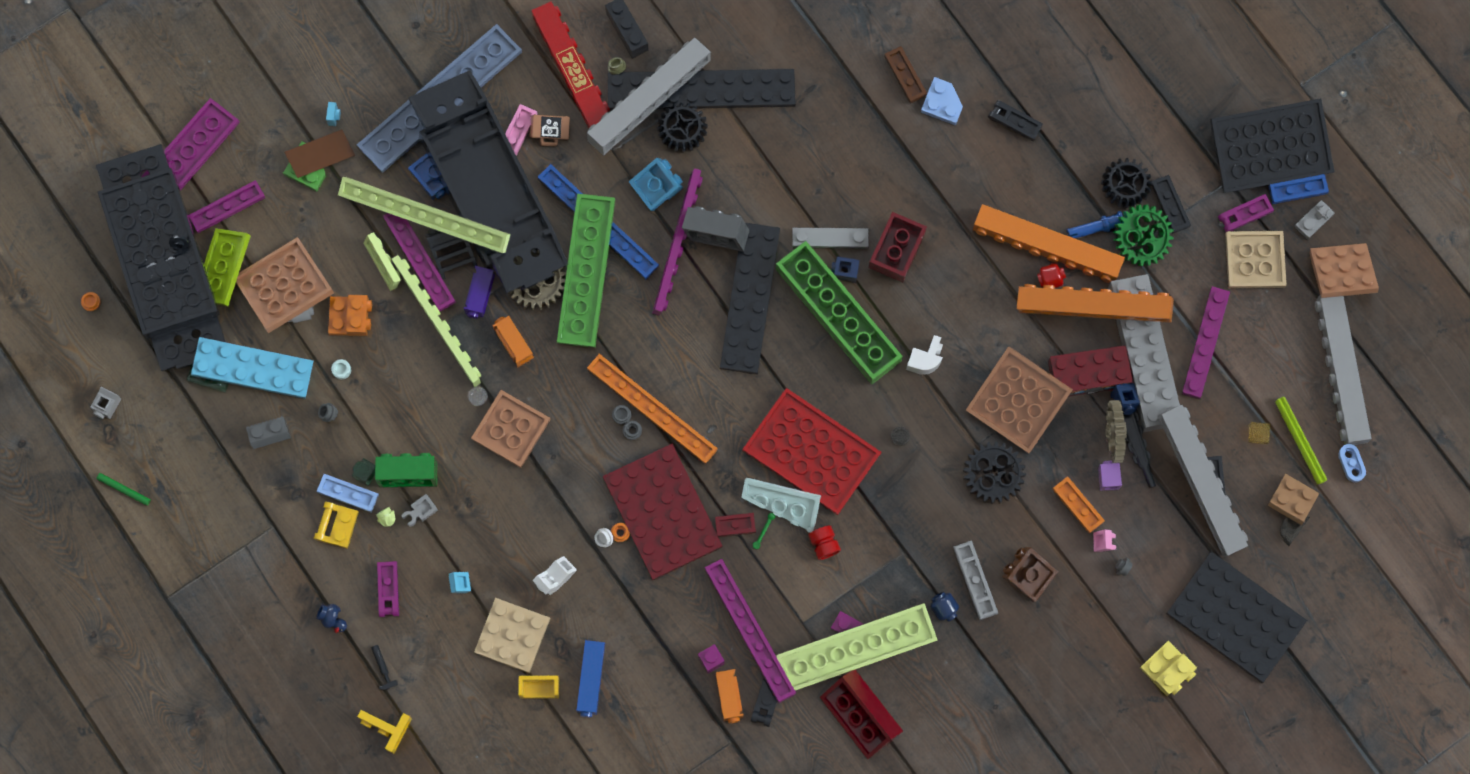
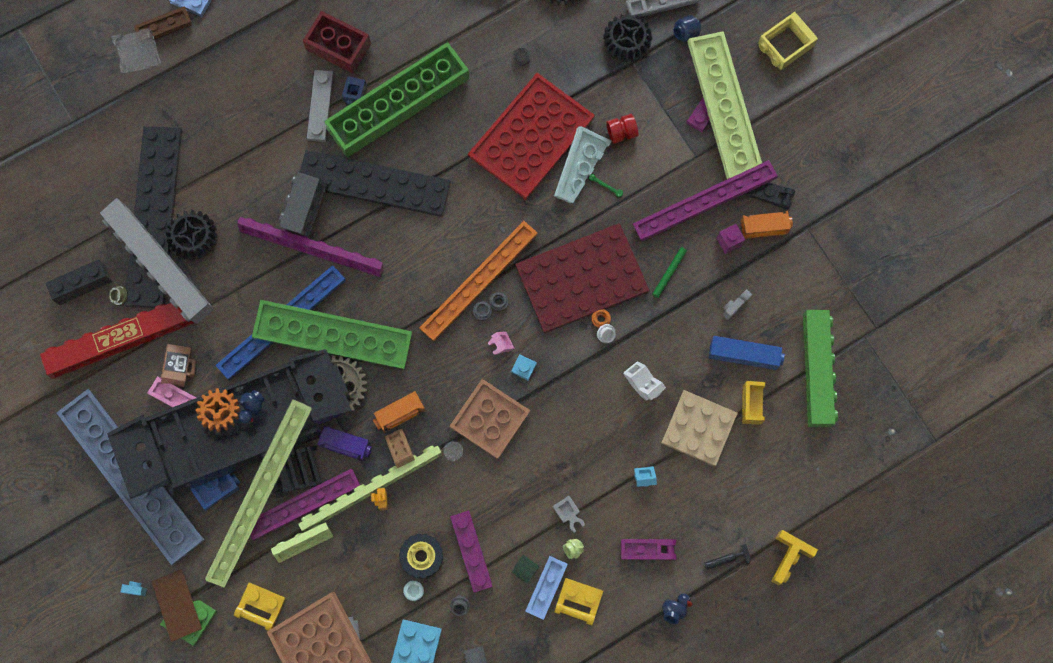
camera: 85 degrees left, 0 degrees up
(327, 231) = (263, 600): none -> yellow plate
(349, 315) = (357, 579): orange plate -> none
(370, 361) = (424, 543): none -> black wheel
(380, 420) = (471, 551): none -> magenta plate
(406, 470) = (529, 523): green brick -> none
(426, 330) = (380, 499): none -> light orange plate
(476, 343) = (399, 448): none -> medium nougat plate
(506, 167) = (210, 406): none -> orange gear
(508, 199) = (252, 404): none -> dark blue animal
(565, 459) = (524, 367): none -> medium azure plate
(578, 753) = (819, 368): none -> bright green brick
(588, 435) = (502, 342): none -> bright pink tile
(638, 664) = (732, 307): none -> light grey plate
(656, 183) = (248, 262): dark azure plate -> none
(673, 599) = (669, 272): none -> green bar
(735, 524) = (599, 209): dark red plate -> none
(861, 714) = (786, 108): dark red slope -> none
(872, 52) = (137, 51): none -> clear panel
(924, 537) = (629, 30): none -> black gear
(926, 362) = (450, 26): white brick -> none
(949, 731) = (799, 28): none -> light yellow window

